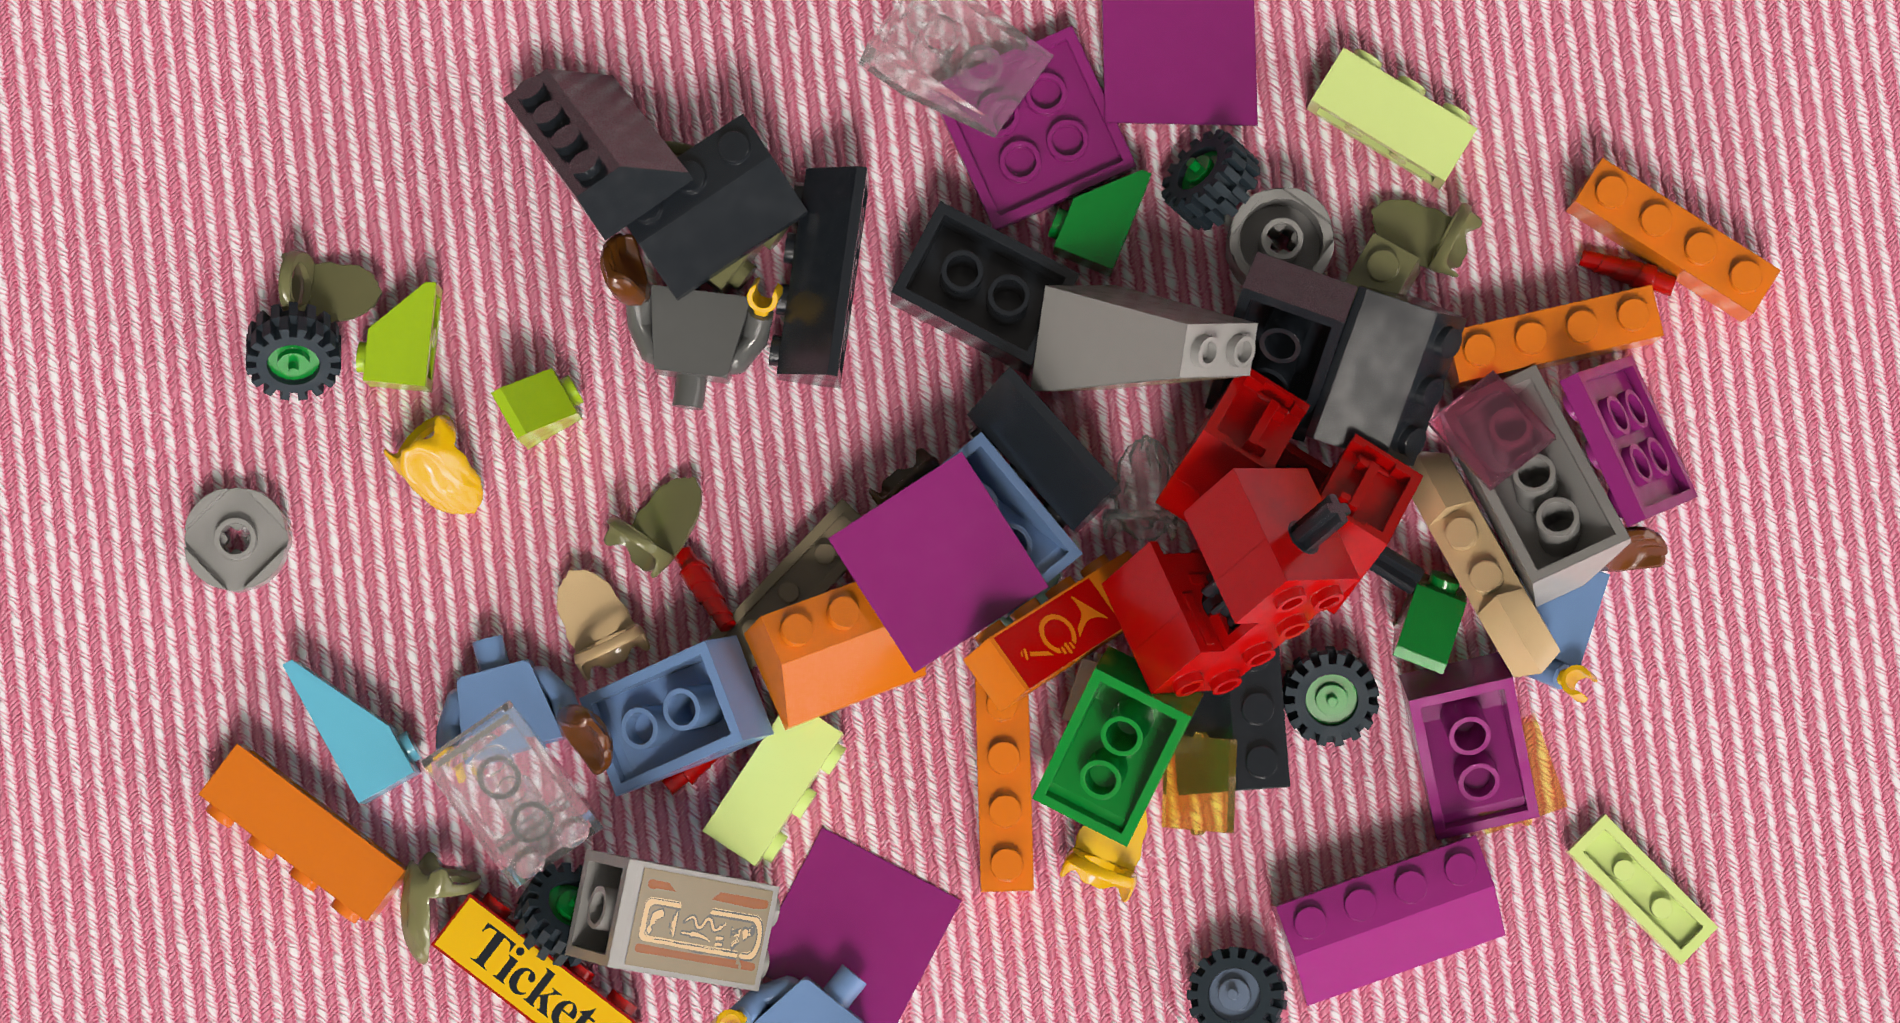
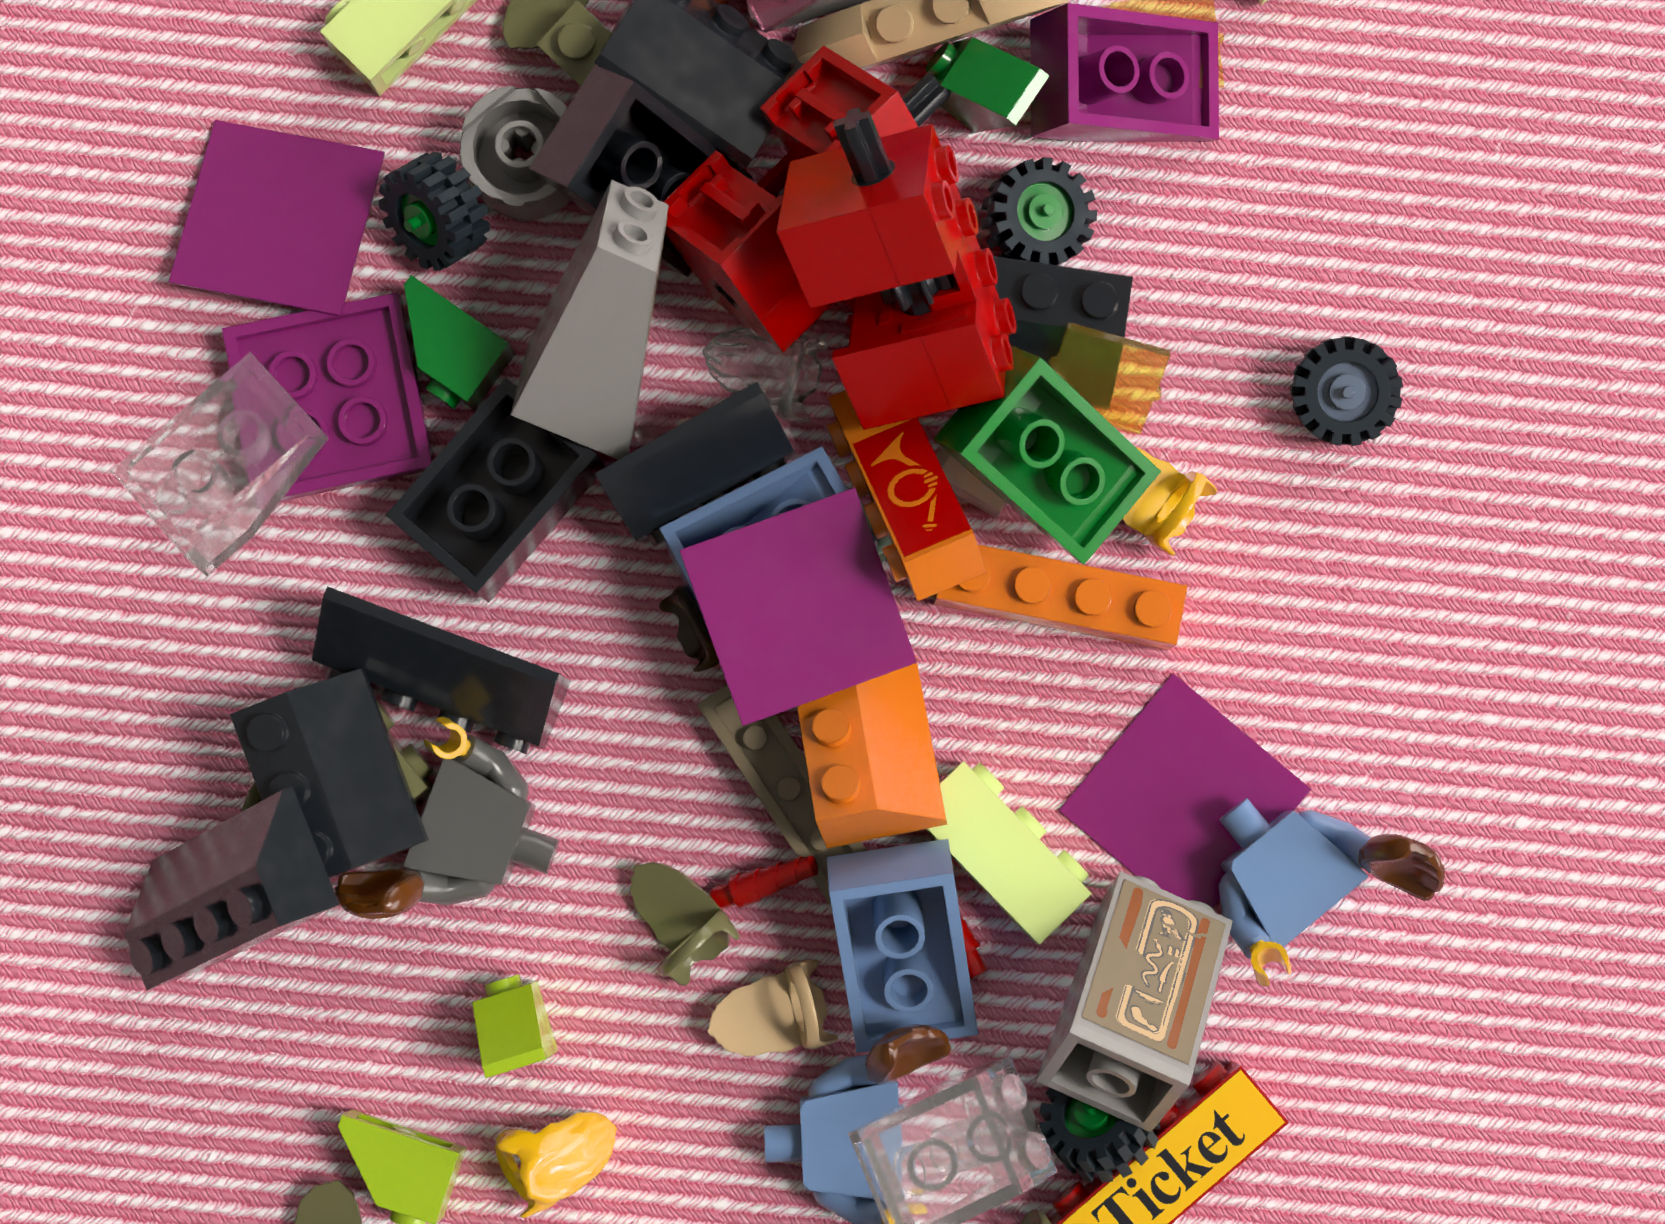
camera: 80 degrees left, 0 degrees up
(1390, 919) = (1293, 207): magenta slope -> none

